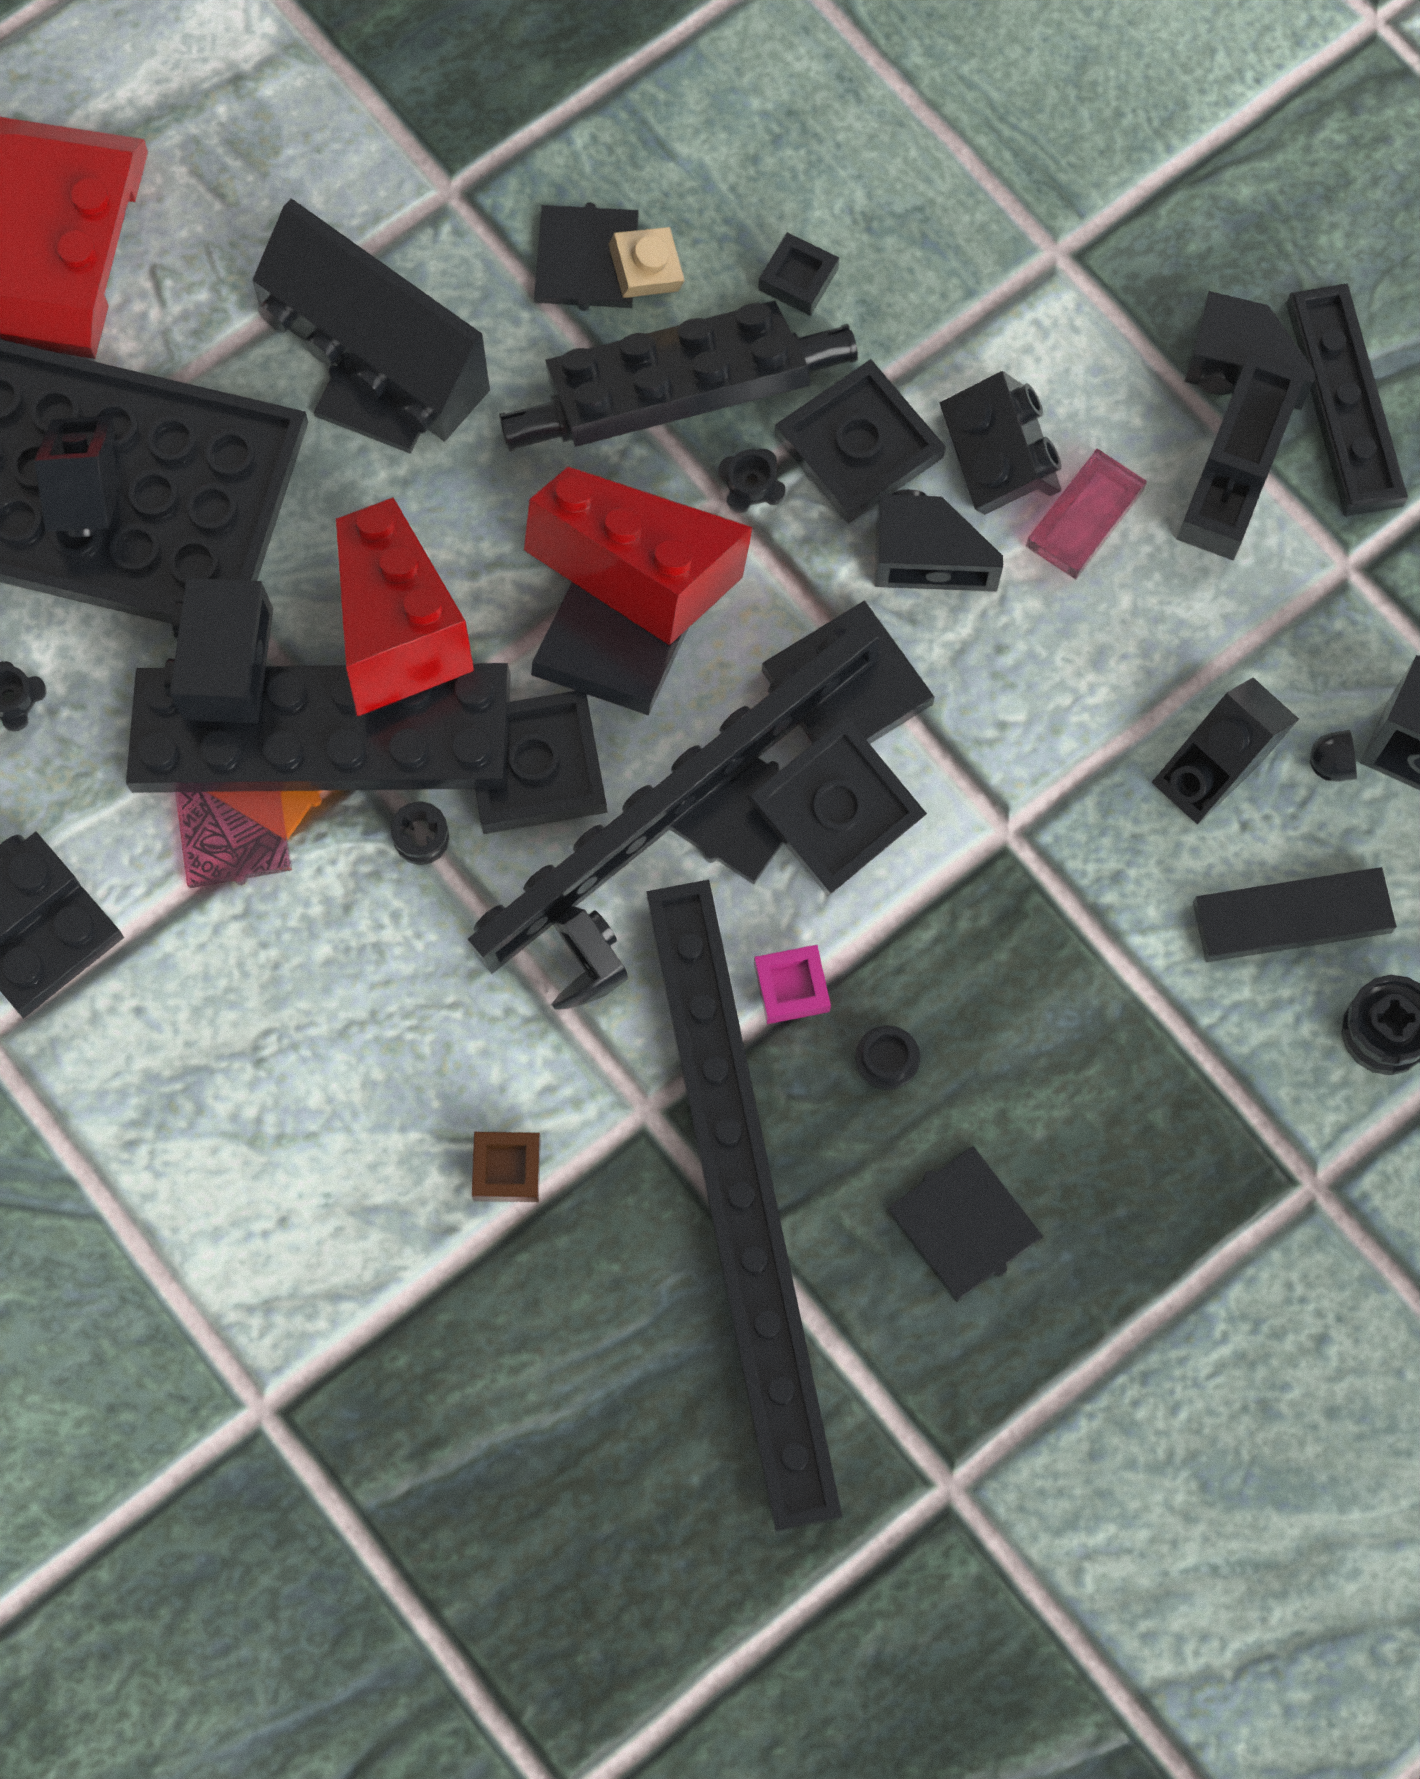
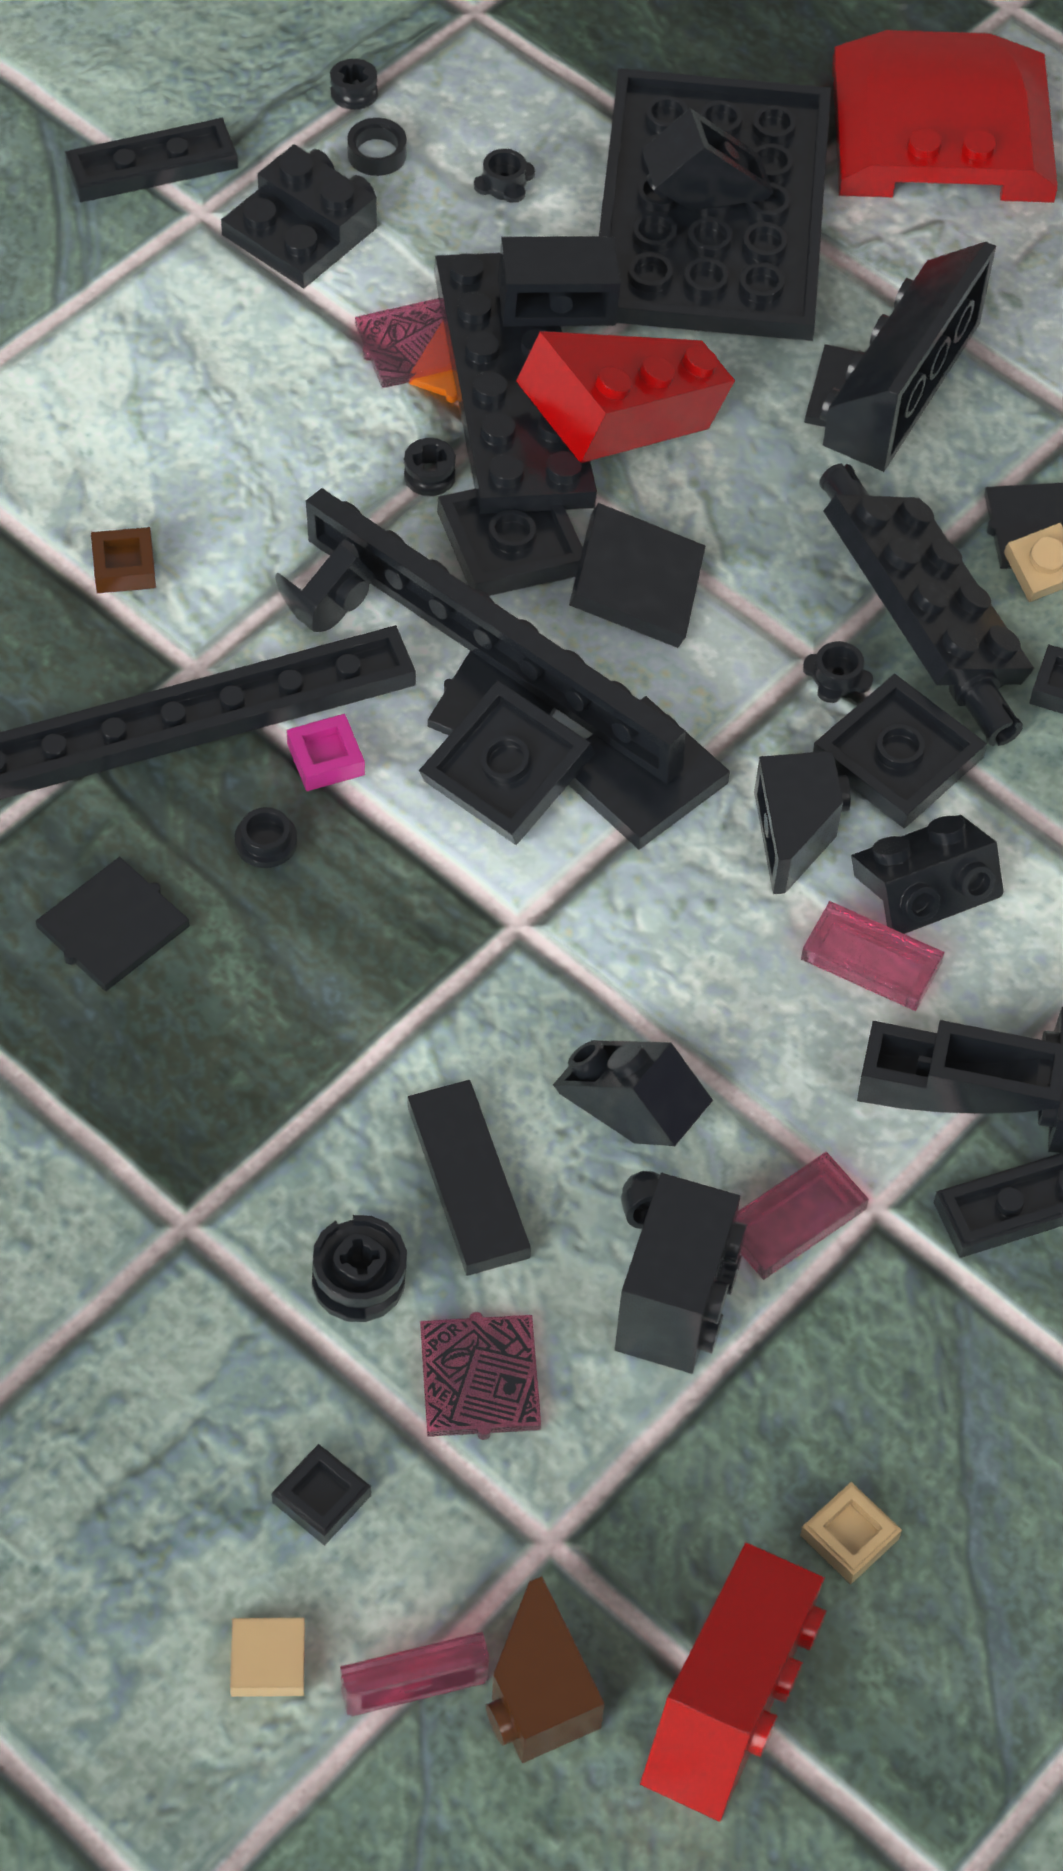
camera: 80 degrees right, 15 degrees down
(636, 549) = (731, 579): red wedge -> none
(1357, 632) = (798, 1214): none -> clear pink tile

